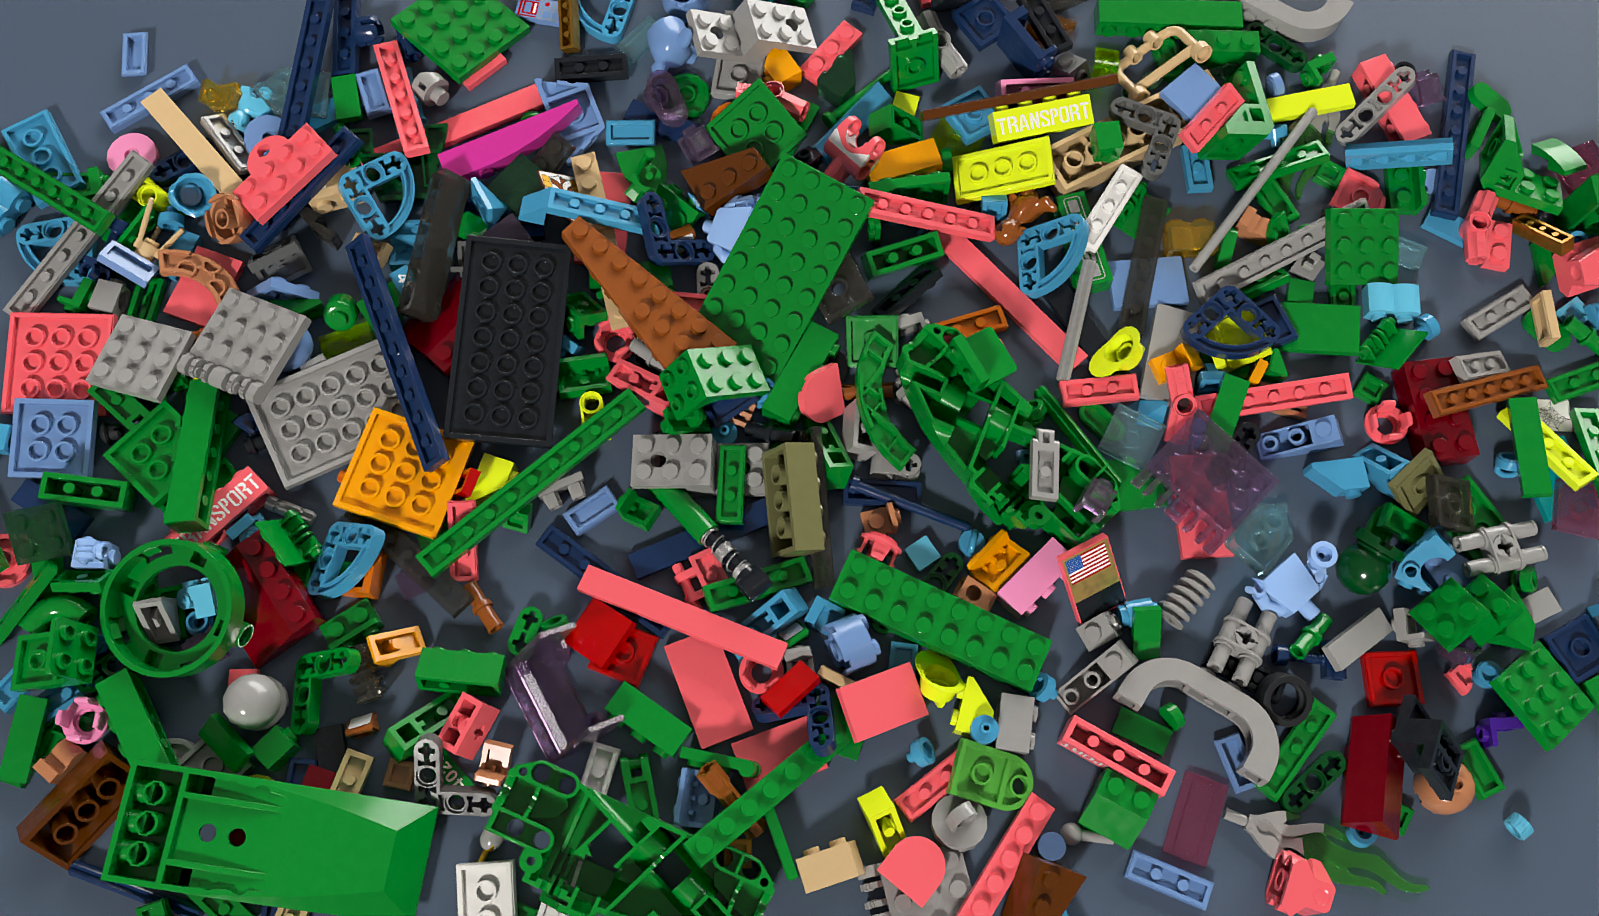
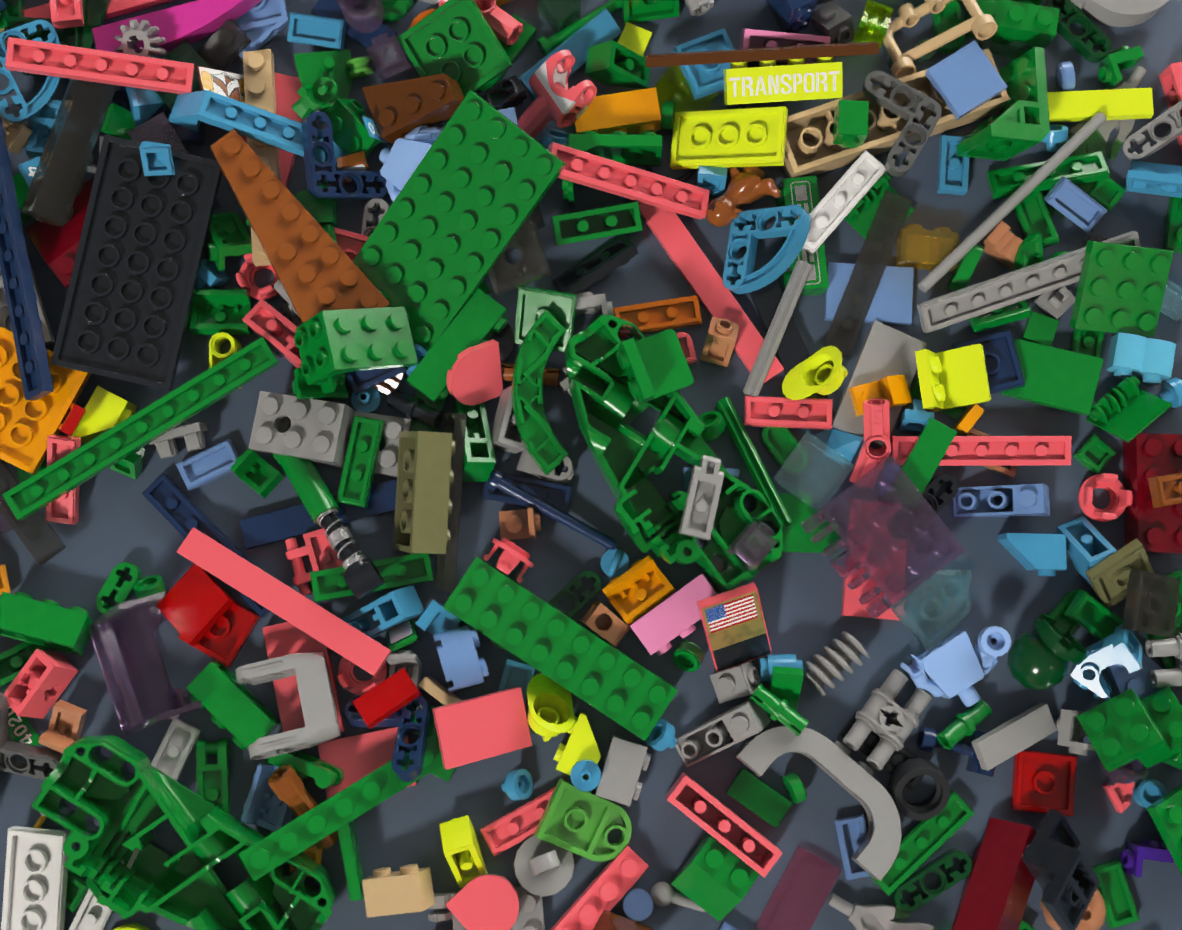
camera: 10 degrees right, 10 degrees up
(455, 179) = (99, 66): none -> coral plate
(479, 168) = (140, 31): none -> light grey gear
(483, 608) = (76, 555): dark orange pin -> none
(516, 249) = (156, 159): none -> dark azure slope
(673, 157) = (359, 67): none -> bright green bush
(725, 696) = (315, 698): none -> light grey connector
(922, 554) = (558, 567): medium azure tile -> none
(1027, 340) = (720, 341): none -> nougat bracket
(1053, 614) = (688, 656): none -> green tile
(1146, 644) = (779, 710): none -> green pin
(1211, 118) = (978, 112): coral plate -> none
(1224, 309) = (948, 343): dark blue beam -> none
(1276, 370) = (991, 417): green slope -> none
(1306, 185) = (1075, 204): none -> medium blue tile
(1356, 186) = (1133, 214): coral tile -> none

